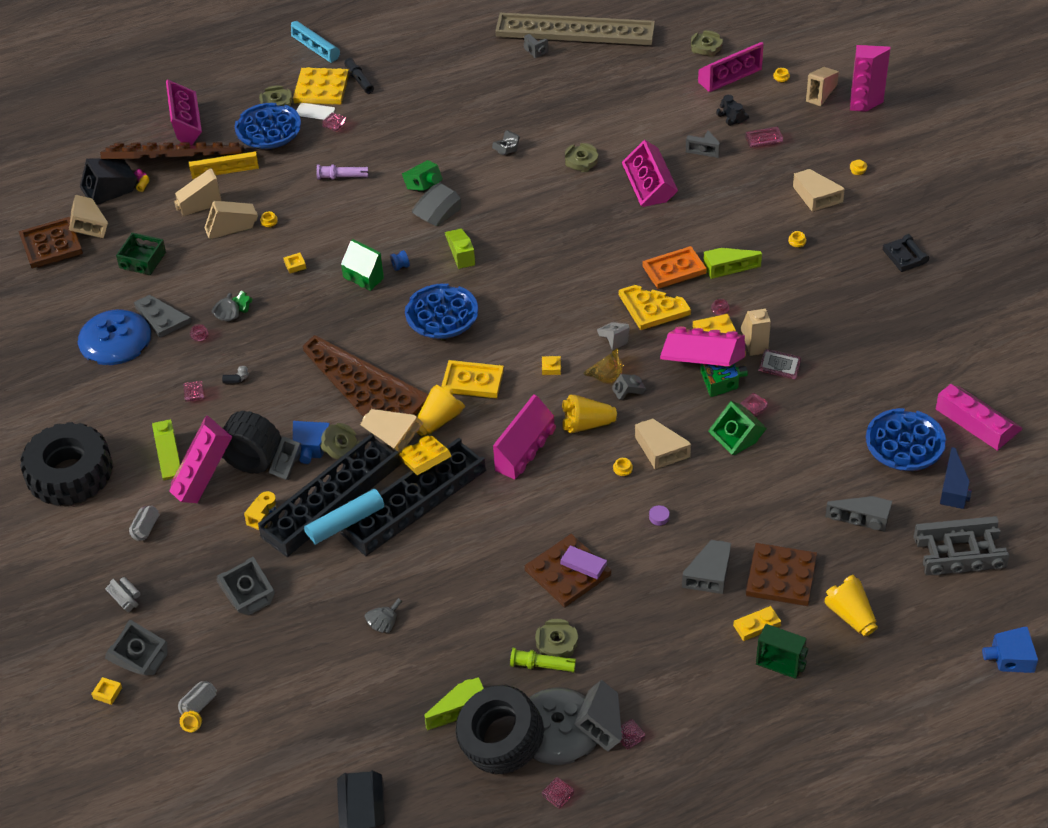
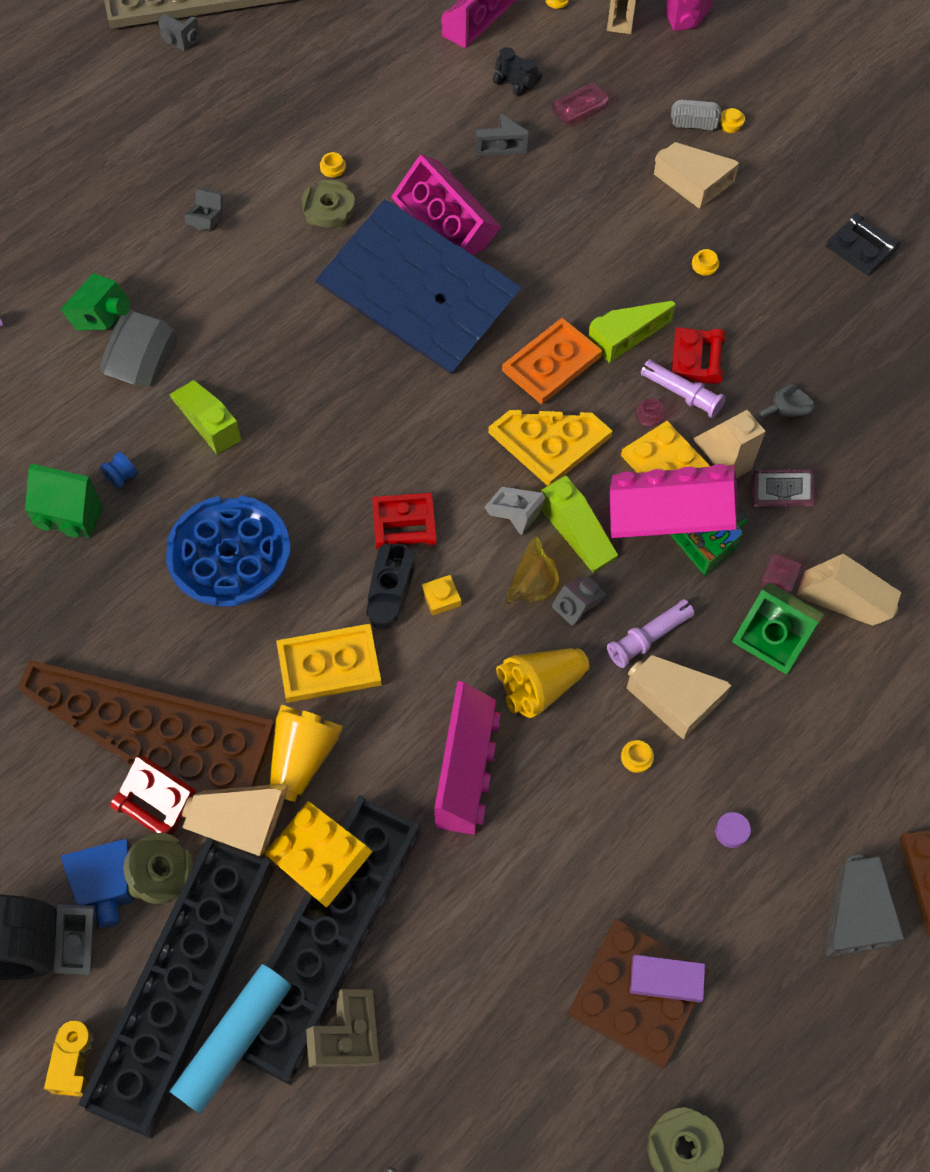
camera: 25 degrees left, 15 degrees up
(354, 406) = (158, 789): none -> plate
(403, 541) = (355, 1037): none -> dark tan plate
(524, 351) = (383, 603): none -> black piece
(547, 319) = (402, 512): none -> red plate
(594, 137) = (332, 165): none -> yellow plate
(605, 200) = (399, 269): none -> dark blue piece
(645, 349) = (577, 523): none -> lime slope
(661, 412) = (640, 639): none -> lavender pin
(750, 303) = (695, 394): none -> lavender pin
(761, 283) = (688, 354): none -> red plate
(789, 421) = (849, 590): none -> tan slope
(808, 322) = (789, 402): none -> dark grey piece
(835, 158) = (695, 114): none -> light grey piece

